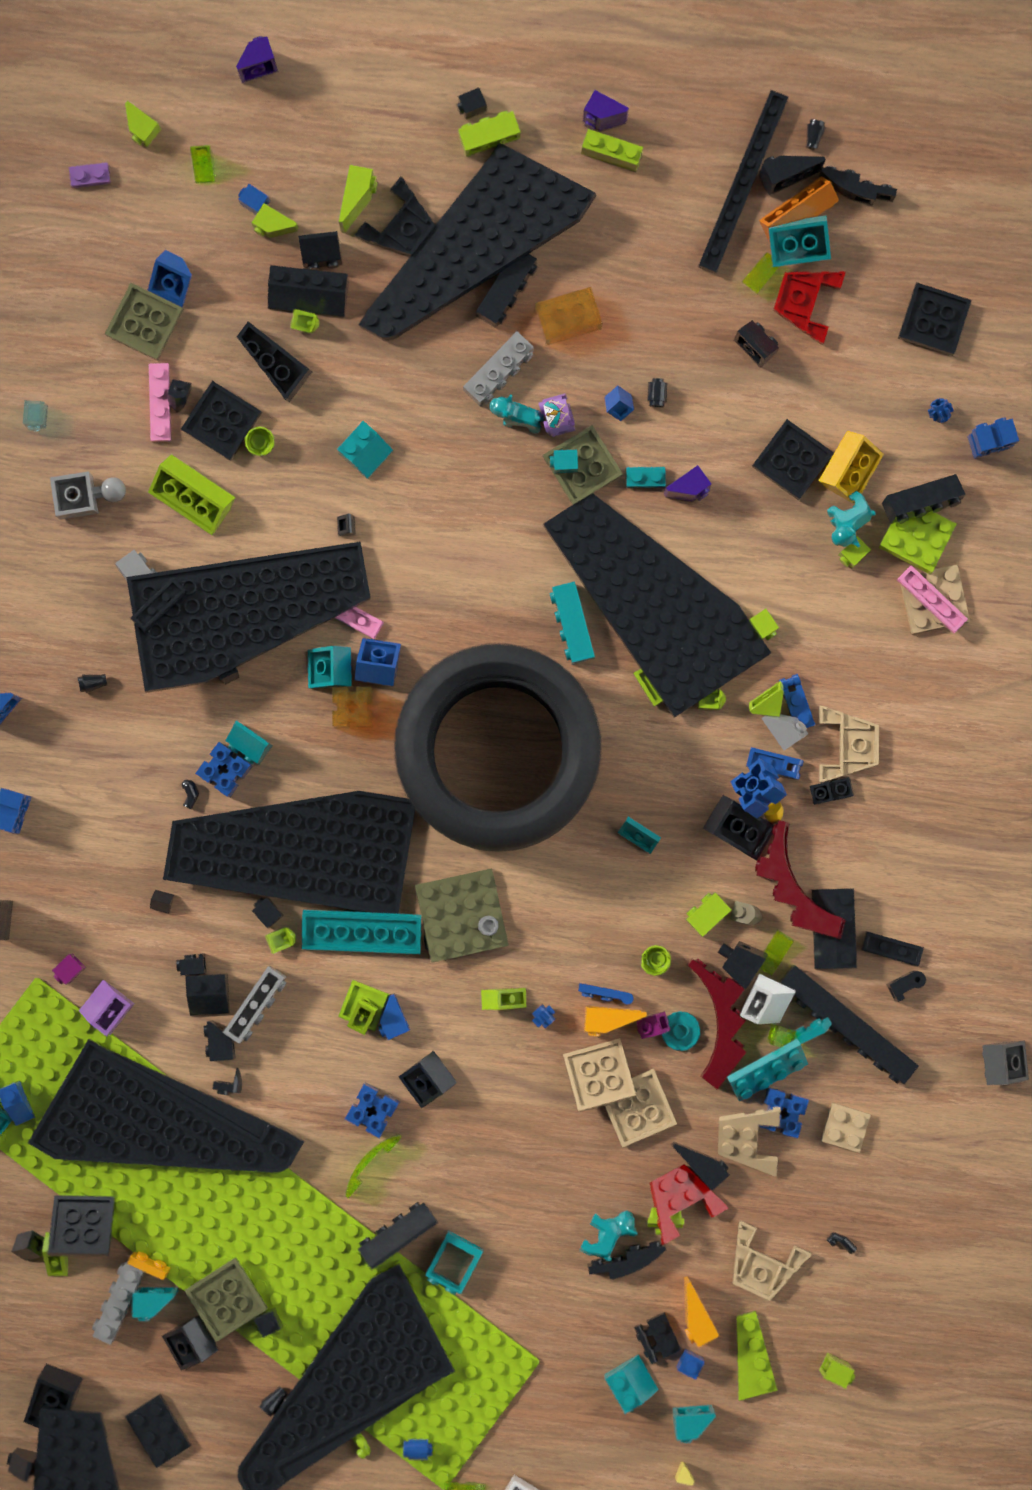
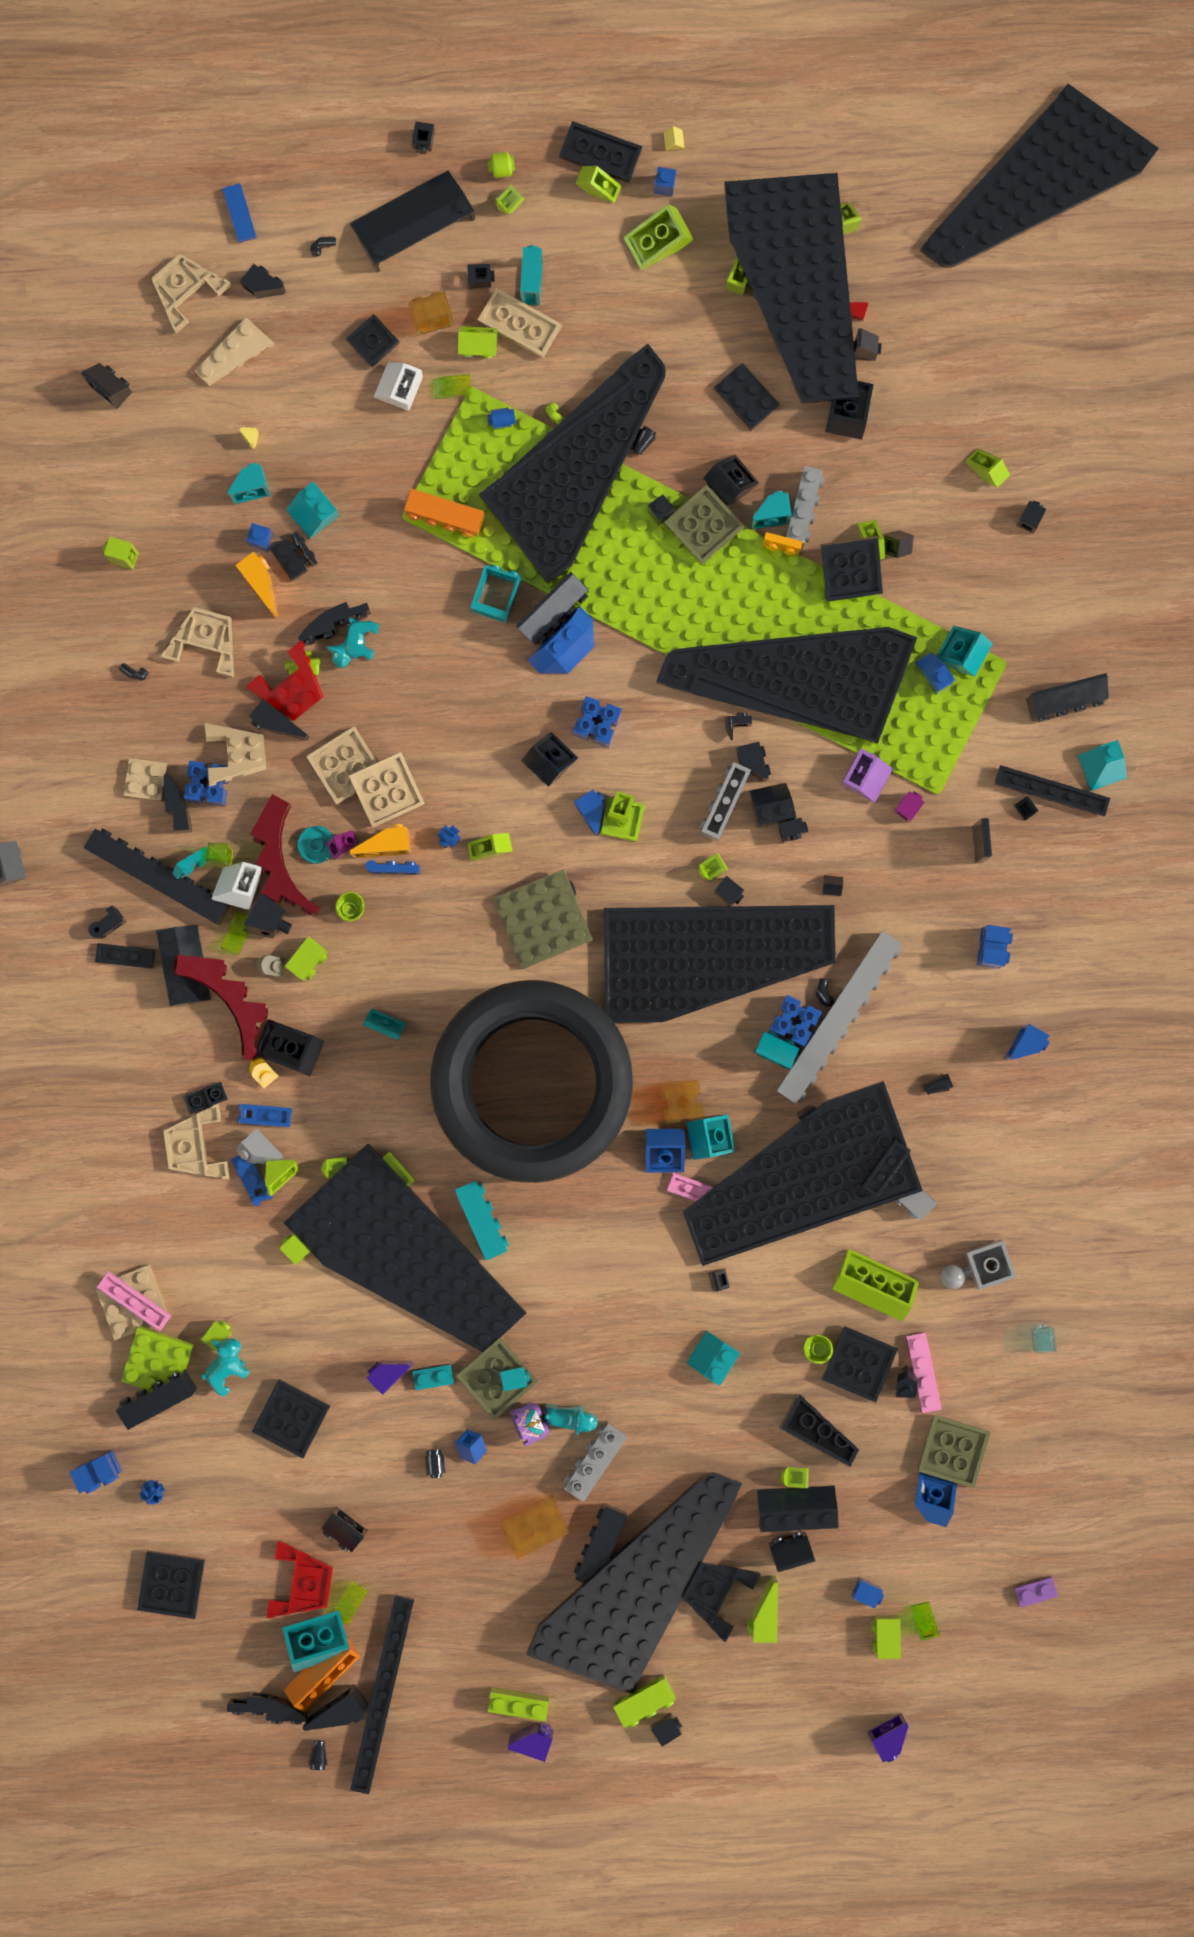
camera: 170 degrees right, 0 degrees up
(140, 125) = (994, 1651): lime slope -> none
(178, 766) = (838, 1018): none -> light grey brick
(242, 155) = (887, 1637): none -> lime brick
(272, 223) = (844, 1572): lime slope -> none
(355, 1181) = (578, 692): clear neon green slope -> none
(361, 931) = (636, 887): teal plate -> none
(391, 1196) = (565, 645): none -> blue wedge
(488, 925) = (515, 913): light grey tile -> none
(493, 1356) = (444, 513): none -> orange brick
(754, 1367) = (200, 546): lime wing -> none
(758, 788) = (275, 1087): blue brick -> none
(768, 1070) = (226, 820): teal plate -> none
(817, 1095) = (176, 805): none -> black slope
(851, 465) = (232, 1421): yellow slope -> none

